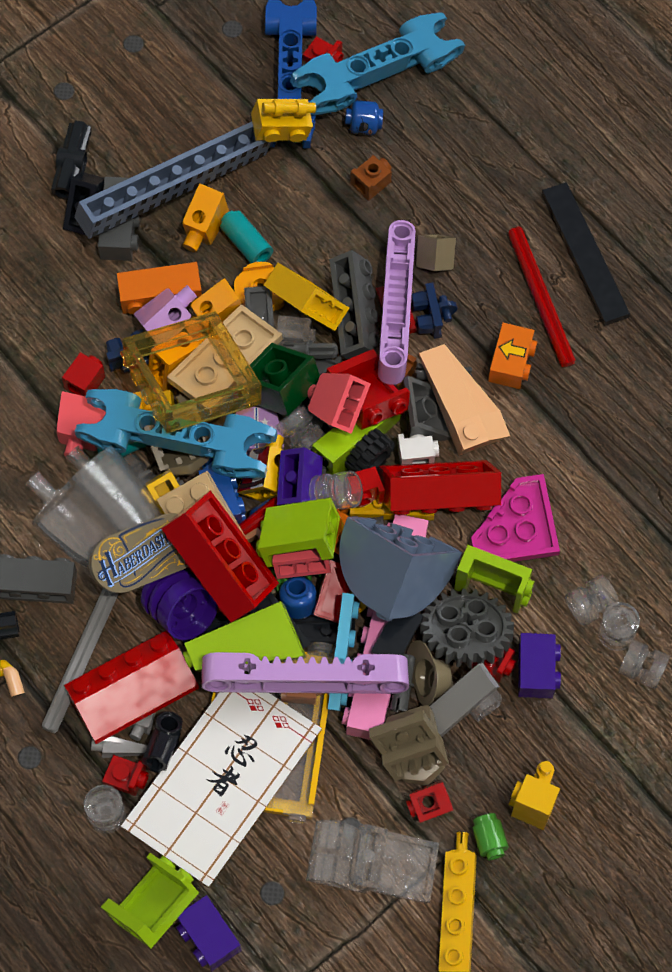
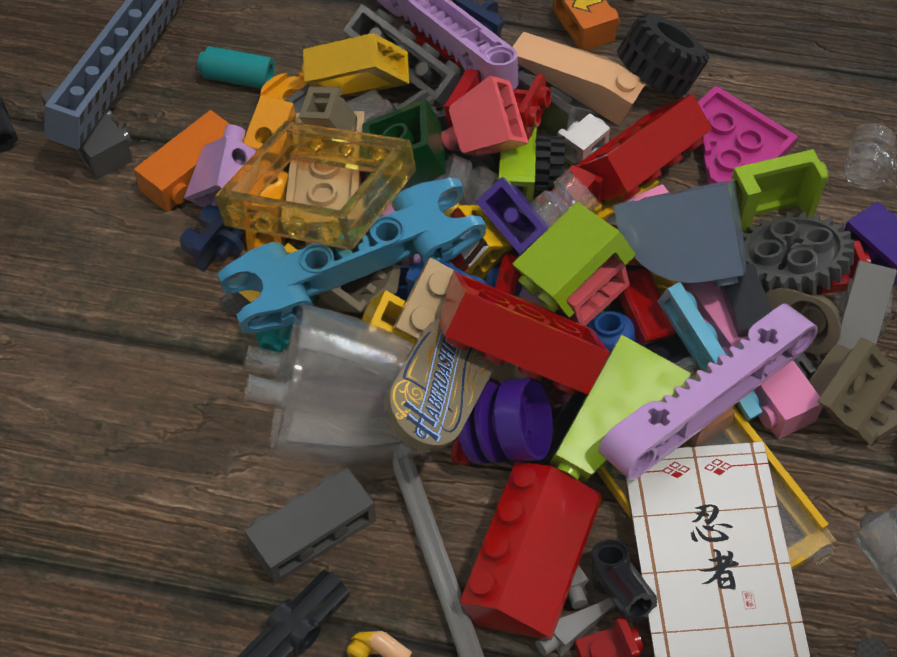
camera: 40 degrees left, 10 degrees down
(75, 411) = (215, 333): coral torso -> none
(81, 187) = (29, 126): black slope -> none
(83, 375) = (183, 289): red brick -> none
(203, 217) = (181, 77): light orange torso -> none
(246, 323) = (327, 109): none -> dark tan brick
(520, 427) = (662, 54): none -> black tyre

